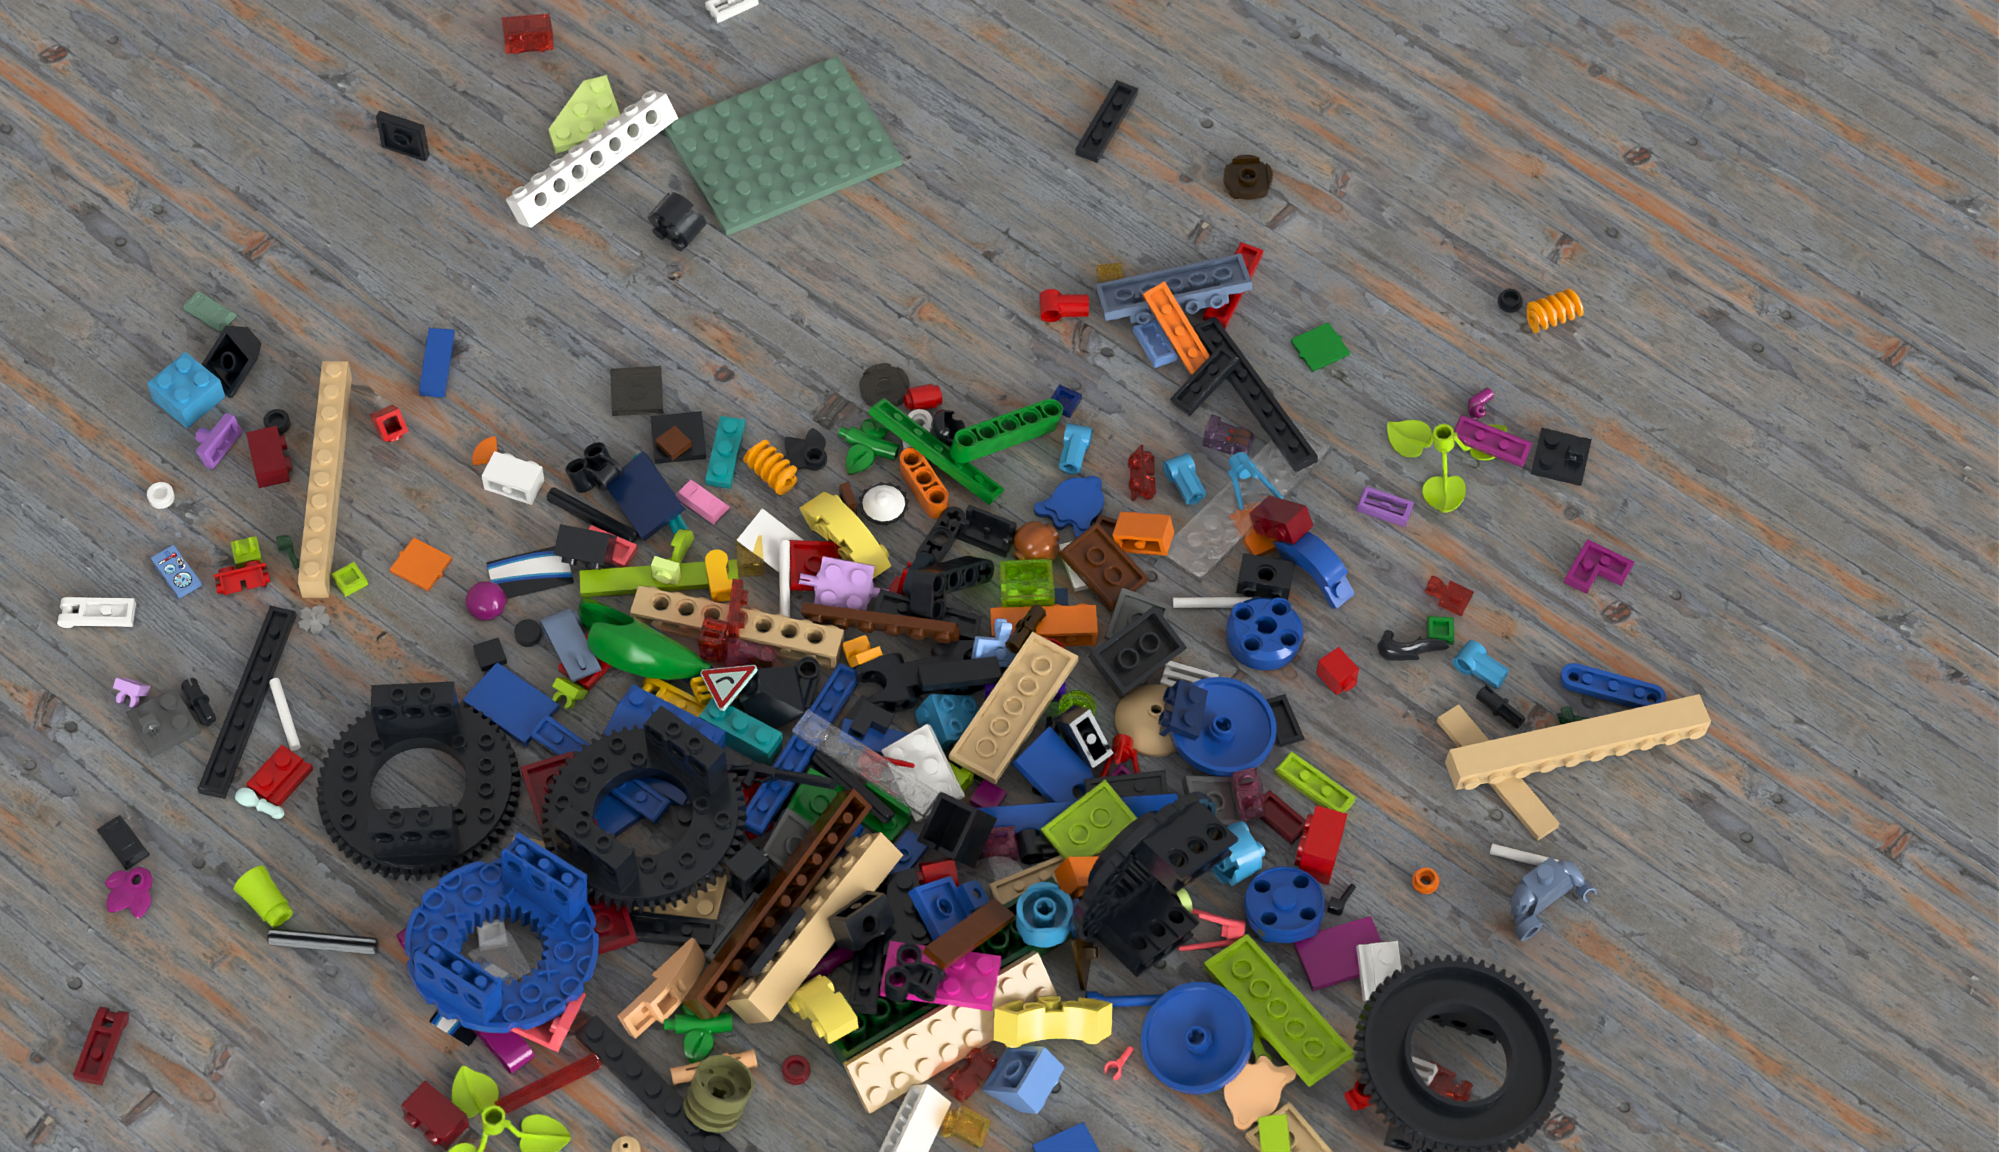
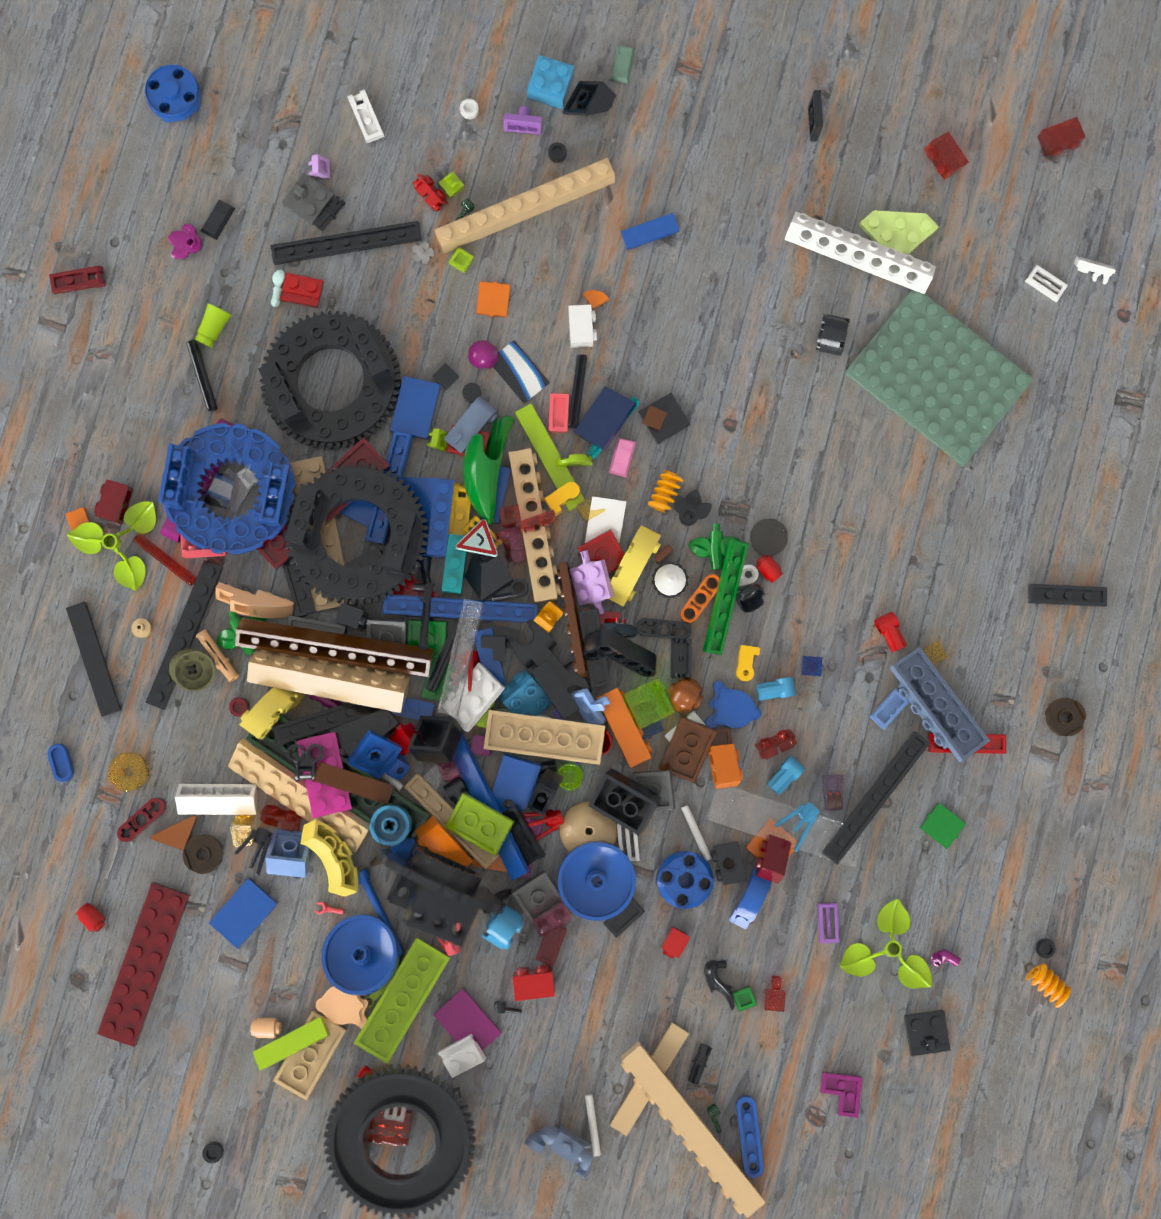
camera: 65 degrees right, 25 degrees up
(176, 571) = (417, 149): medium blue tile -> none
(268, 457) = (525, 161): dark red brick -> none
(284, 714) = (346, 270): white bar -> none
(389, 423) = (583, 225): red brick -> none
(585, 545) = (546, 399): black brick -> none
(593, 470) = (609, 376): black piece -> none
(636, 390) = (688, 373): clear smoke tile -> none
(665, 571) = (549, 460): yellowish green plate -> none
(725, 452) = (667, 454): teal plate -> none
(772, 942) = (296, 658): black tile -> none
(784, 577) = (582, 540): white bar -> none
(861, 920) = (338, 708): black brick -> none
(985, 1101) = (262, 838): none -> black plant
(1006, 430) = (772, 640): green beam -> none
(1025, 466) = (745, 661): none -> yellow leg
(1025, 628) = (607, 719): dark brown pin -> none
(1176, 327) = (901, 723): orange plate -> none
(1183, 710) = (591, 851): dark blue bracket -> none
(1205, 380) = (871, 758): black tile -> none
(1286, 904) = (480, 974): blue piece -> none
(1314, 784) = (585, 958): lime tile -> none
(1425, 874) = (544, 1066): orange plate -> none
(1475, 661) = (727, 1034): dark azure piece -> none
(1492, 441) = (913, 980): magenta tile -> none

